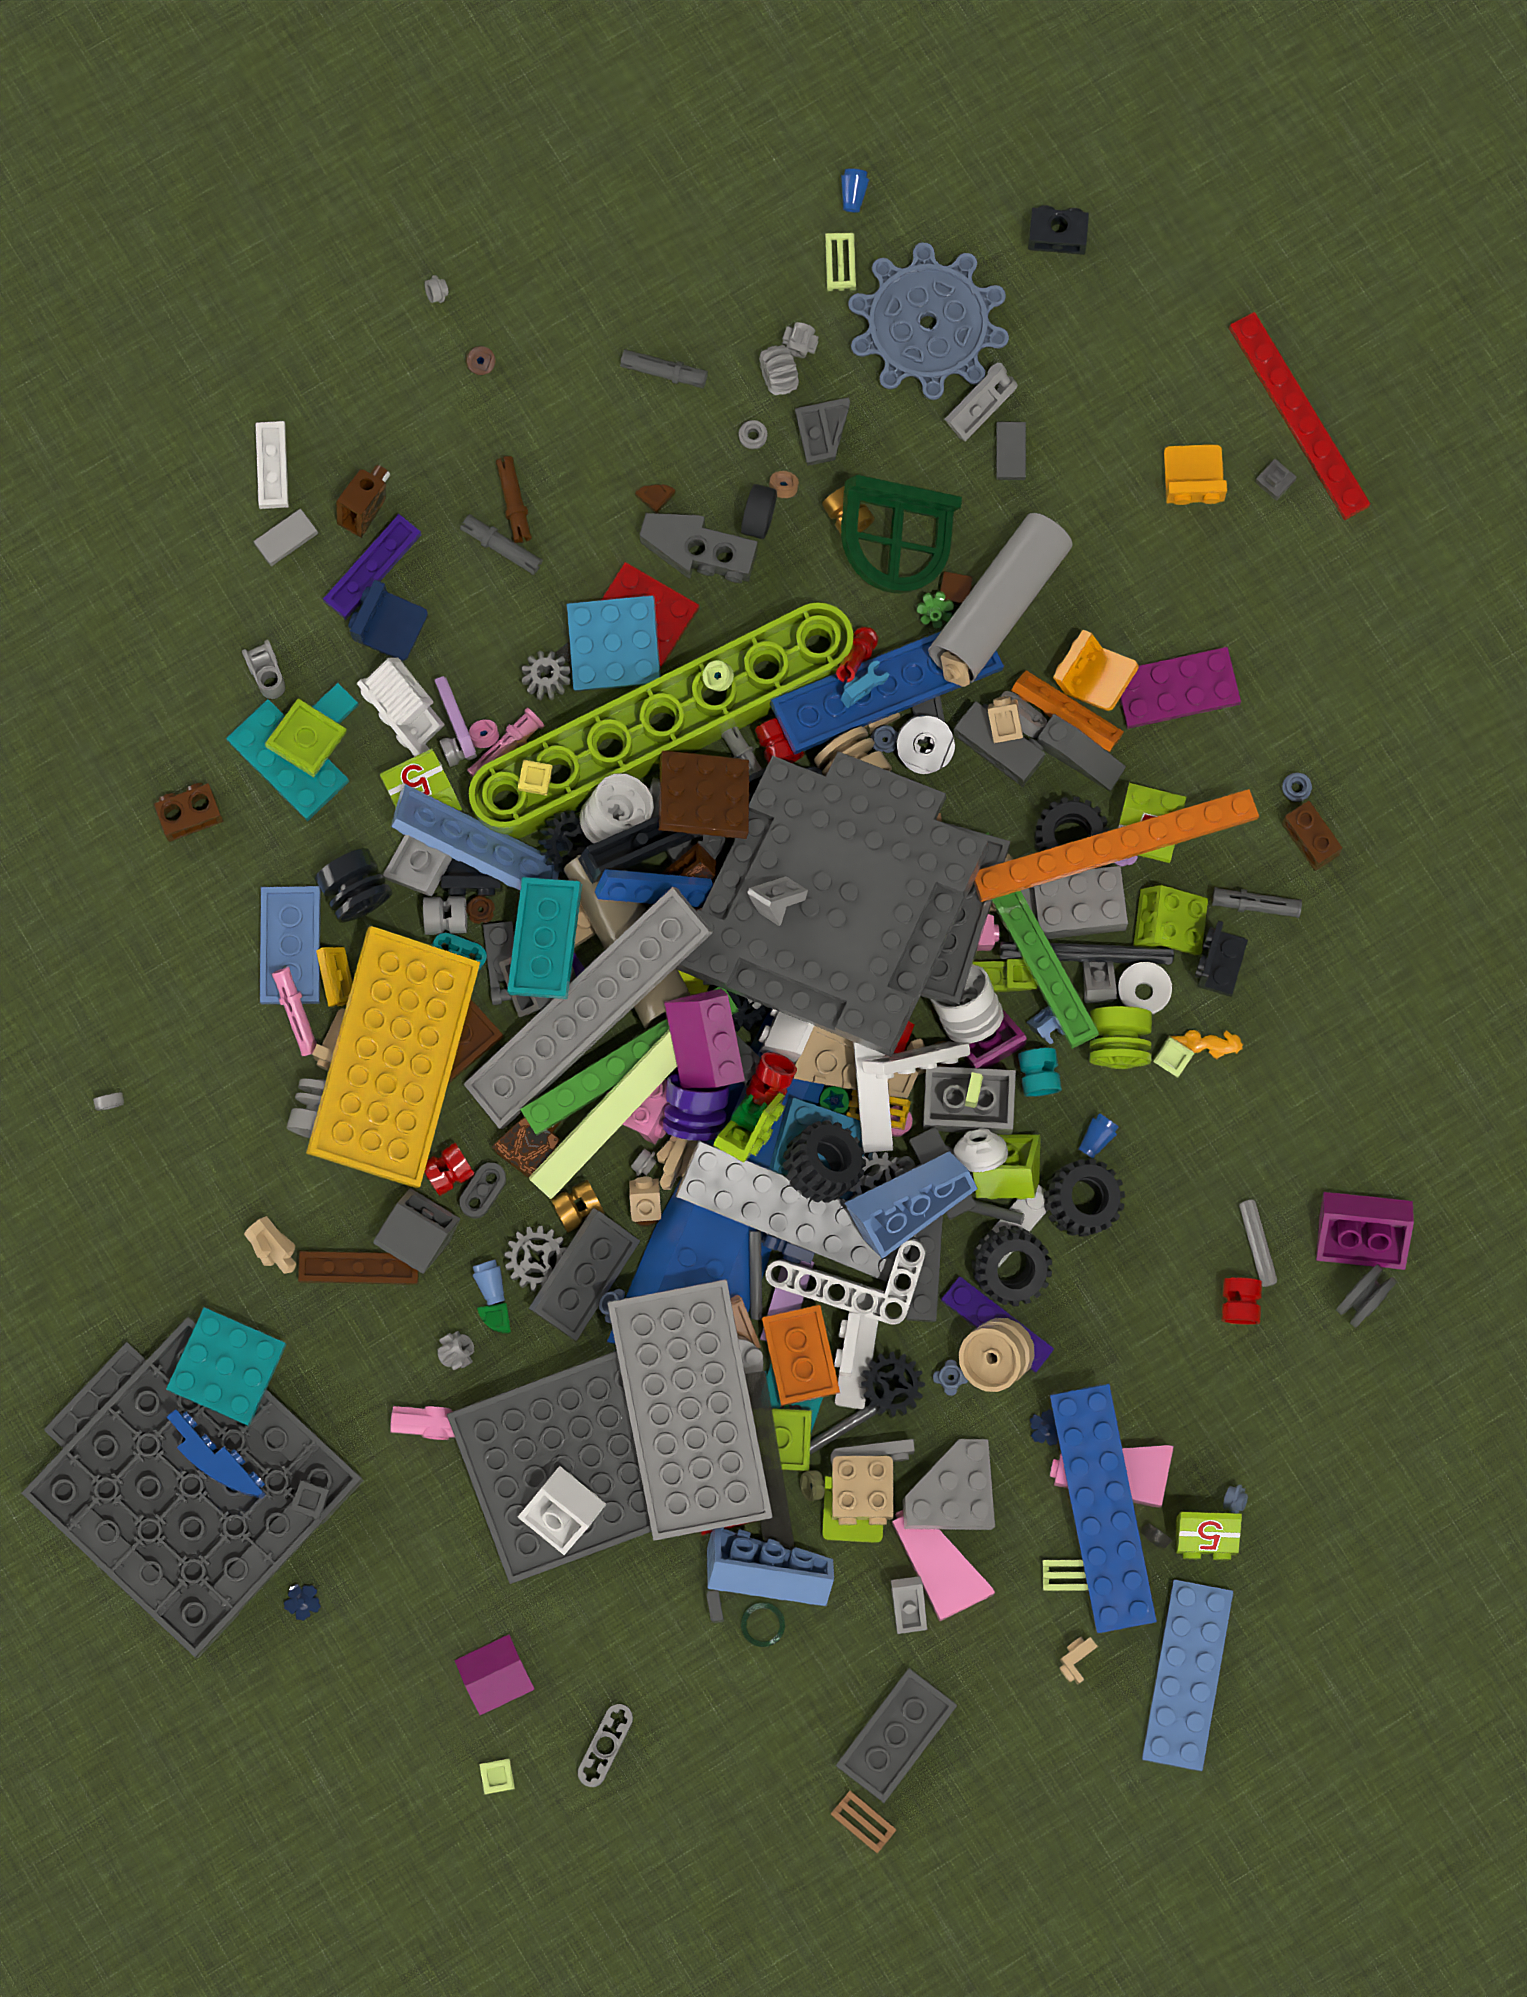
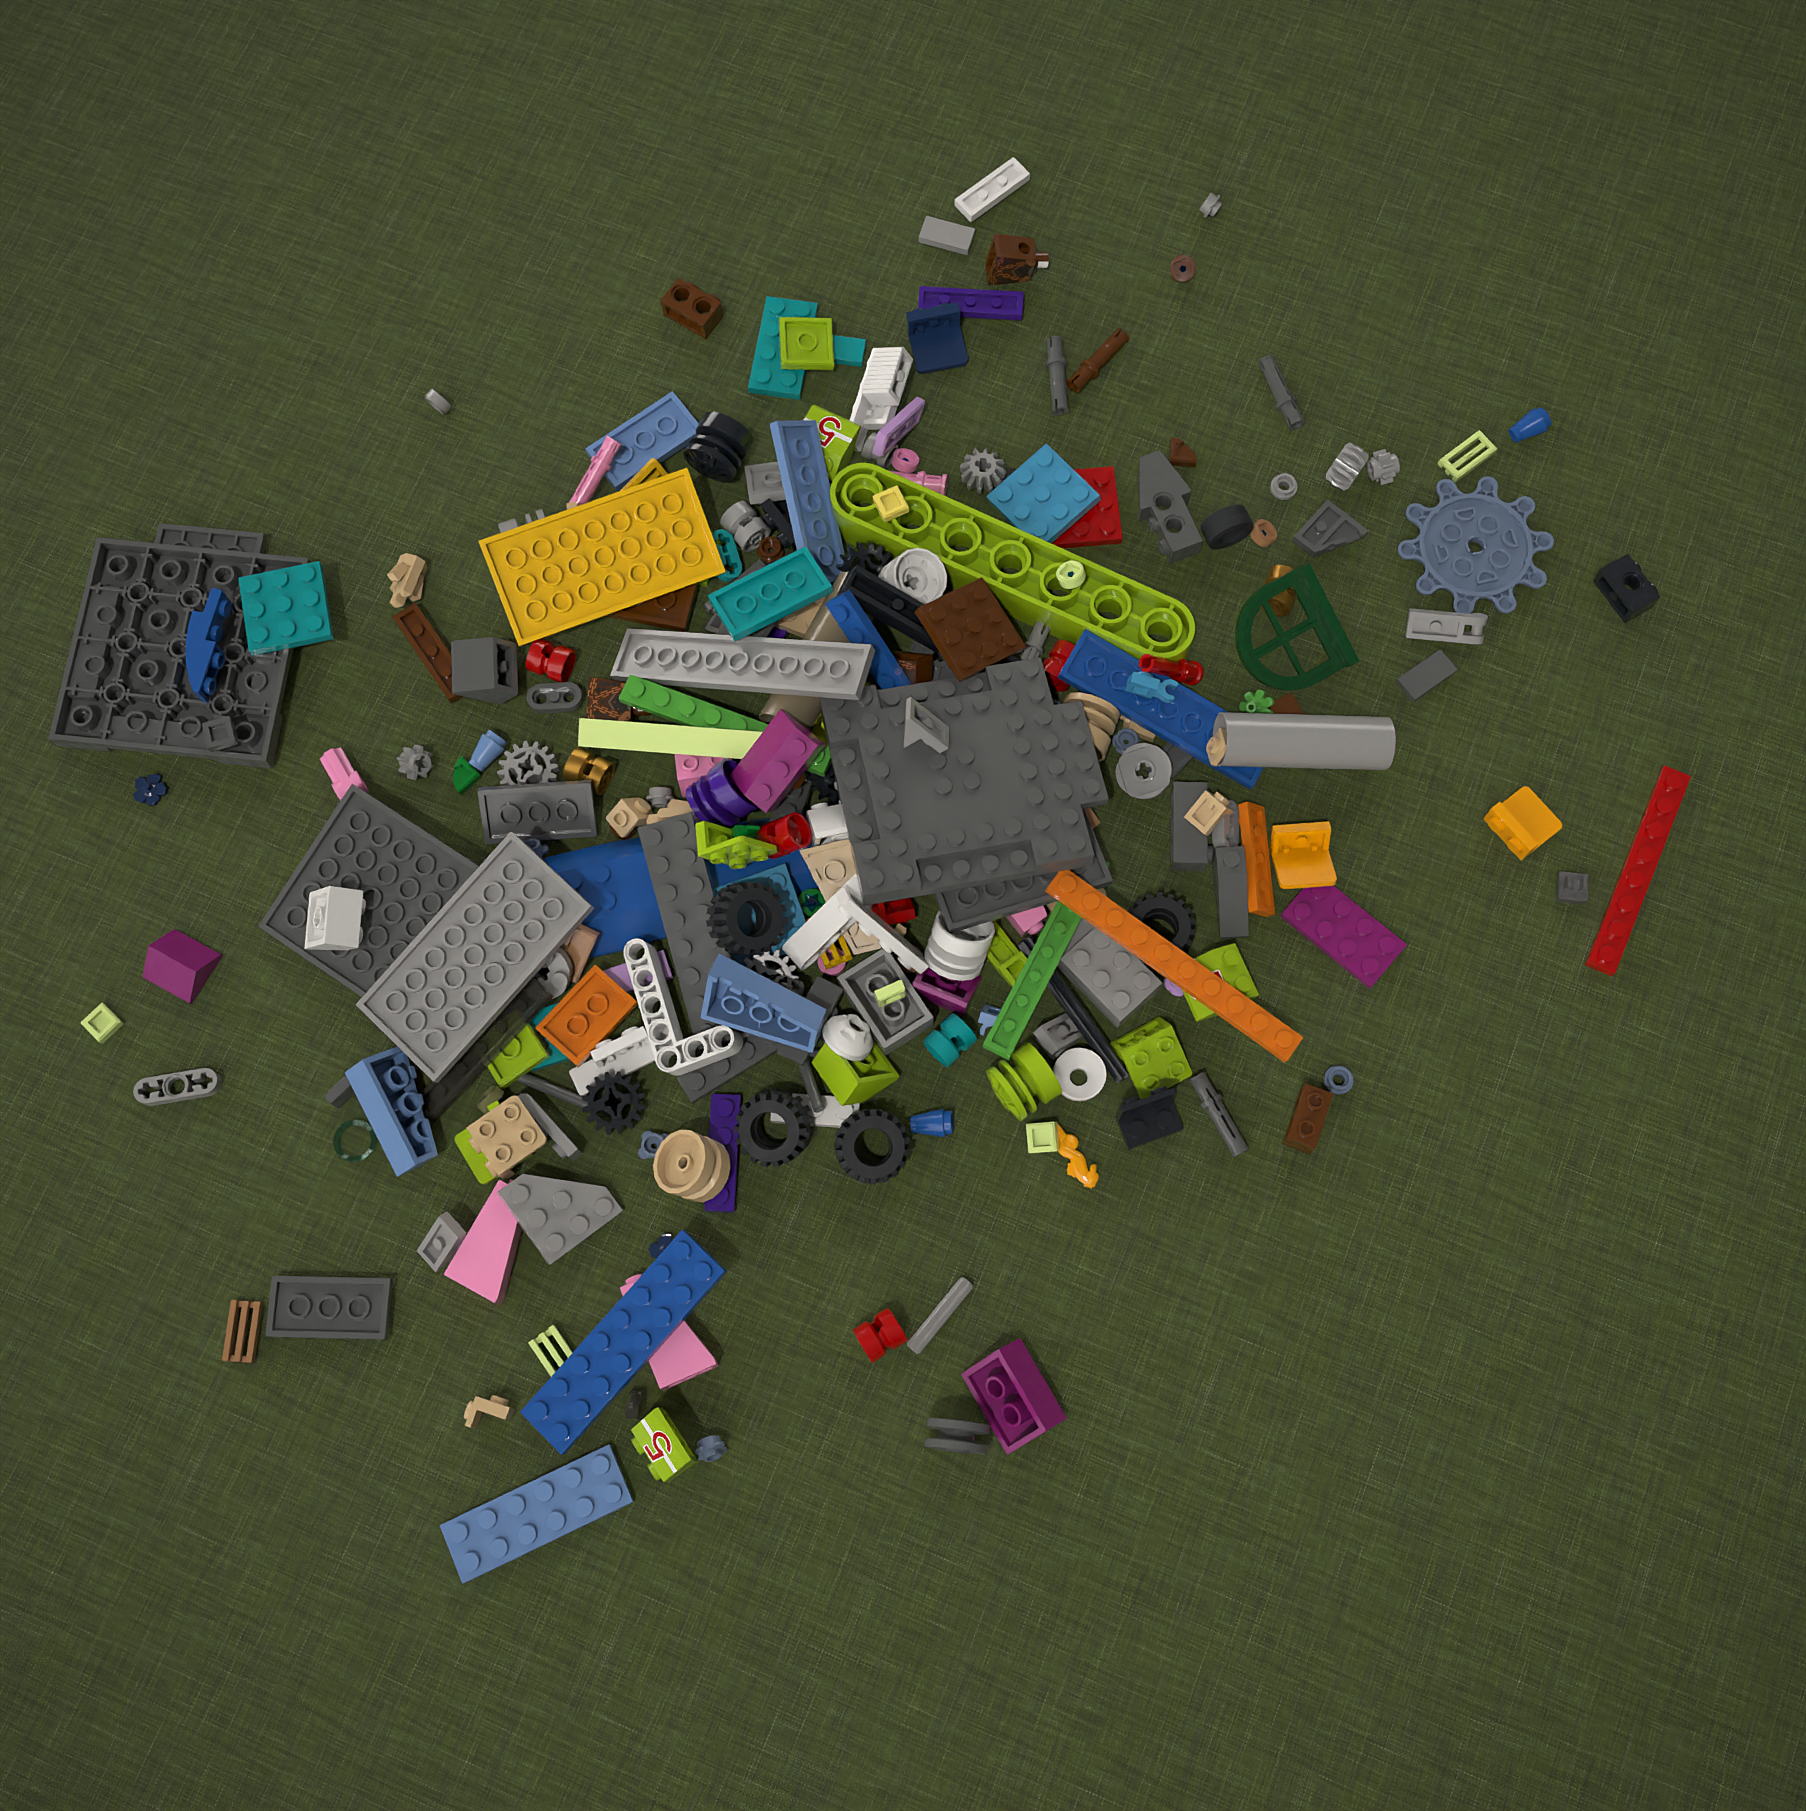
camera: 55 degrees right, 5 degrees down
(263, 666) = (840, 283): light grey piece -> none
(755, 1274) = (633, 933): dark grey bar -> none
(792, 1252) = (663, 950): dark blue plate -> none

